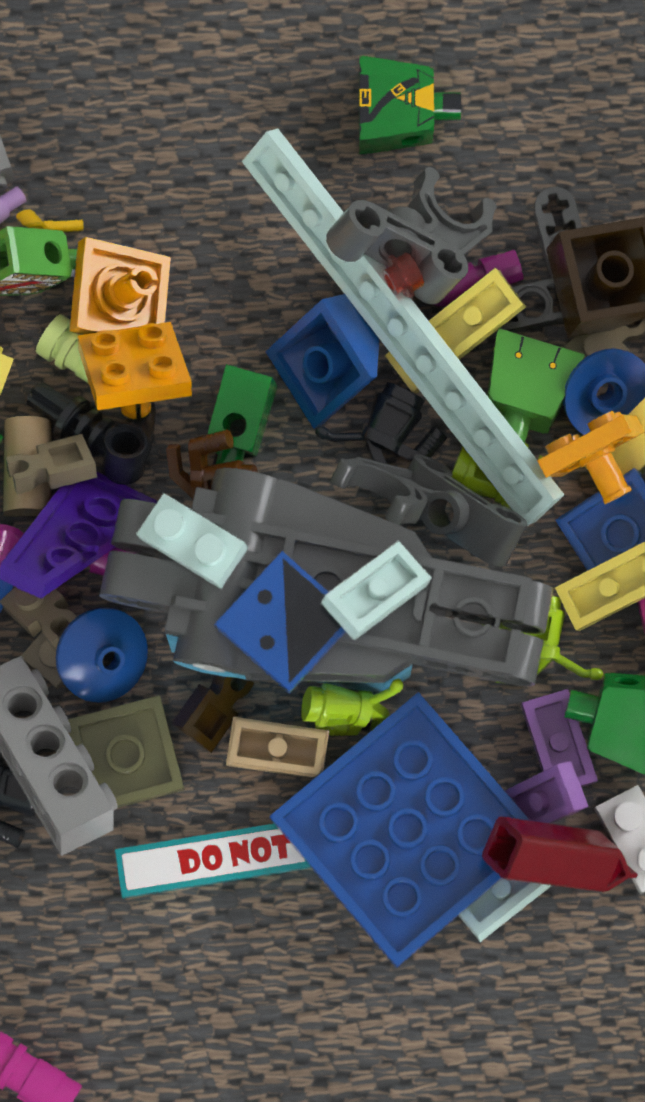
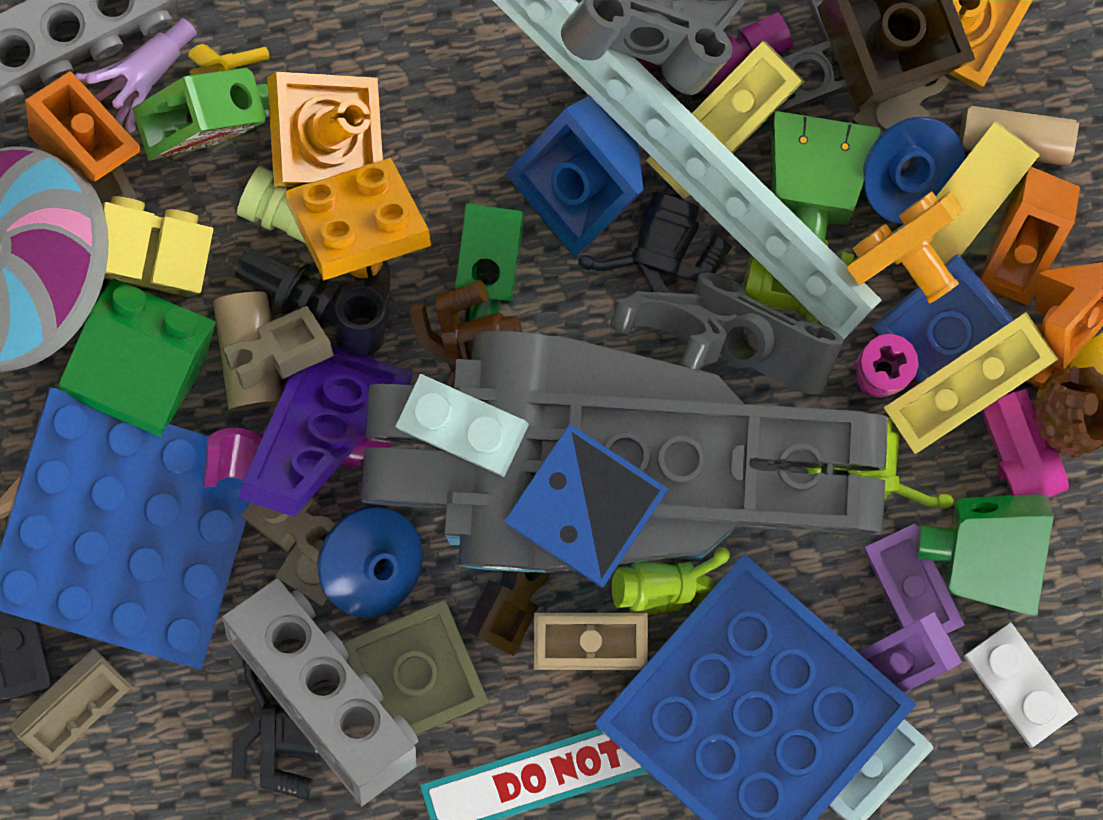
camera: 10 degrees left, 5 degrees up
(376, 590) = (687, 455): light aqua plate -> none
(403, 275) = (658, 68): clear red plate -> none
(555, 855) = (930, 723): dark red piece -> none
(570, 545) = (891, 352): none -> dark pink axle

